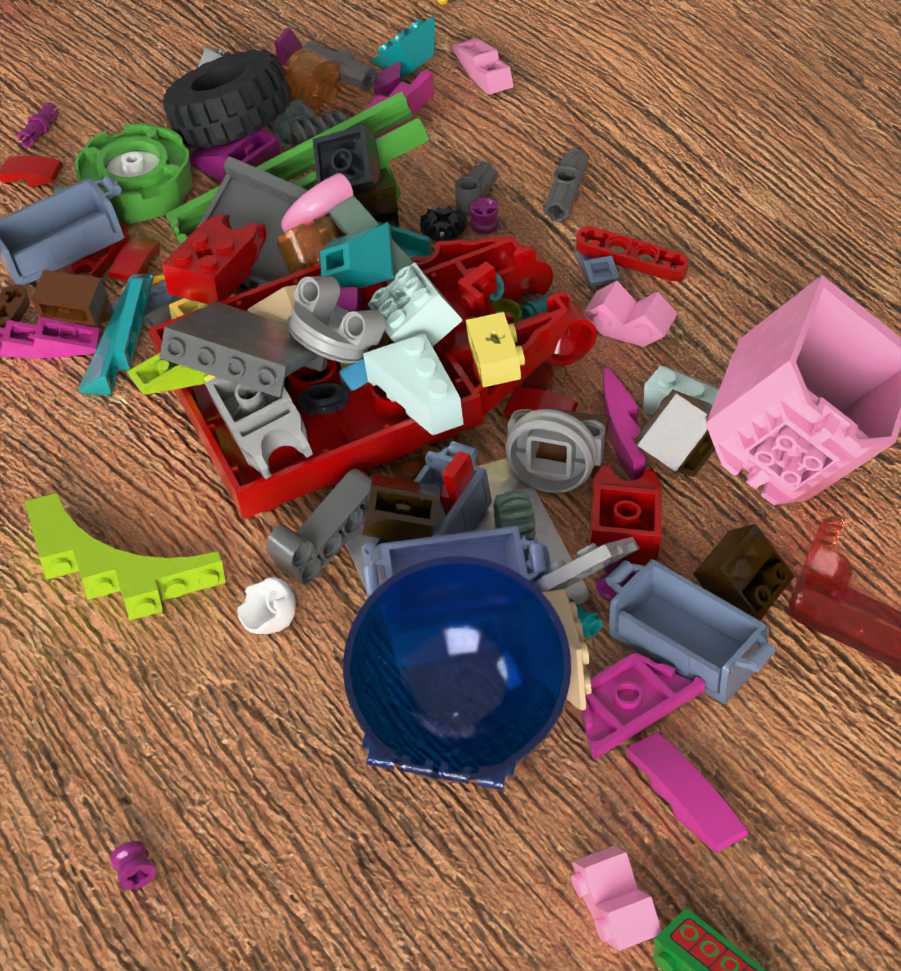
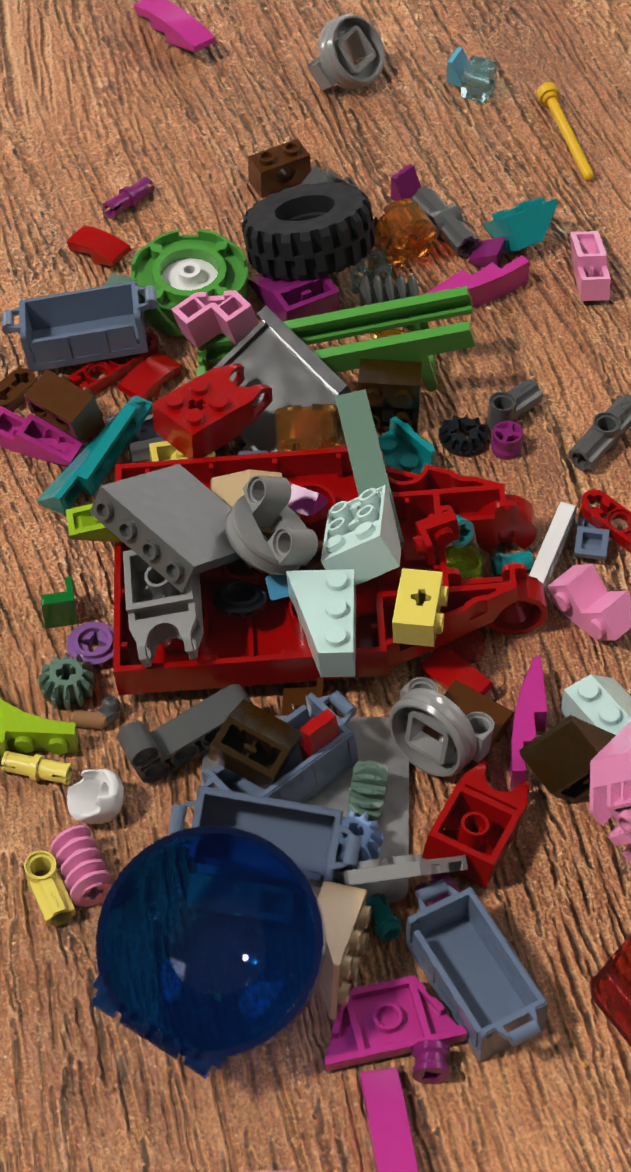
camera: 20 degrees right, 5 degrees up
(149, 468) = (60, 608): none -> green panel
(167, 63) = (279, 168): none -> reddish brown brick
(169, 189) = (206, 316): none -> bright pink brick
(188, 524) = (67, 681): none -> sand green gear
(196, 603) = (37, 767): none -> light yellow pin
(206, 480) = (85, 635): none -> medium lavender gear
(236, 542) = (100, 718): none -> arm
(261, 698) = (48, 889): none -> light yellow piece
(284, 668) = (81, 866): none -> bright pink piece
(317, 202) = (328, 384): bright pink cylinder -> none
(349, 153) = (378, 347): black slope -> none
(360, 257) = (334, 461): teal slope -> none
(568, 272) = (554, 543): none -> white beam
(686, 716) = (431, 1062): none -> magenta wheel
(745, 571) = (566, 930): dark brown slope -> none

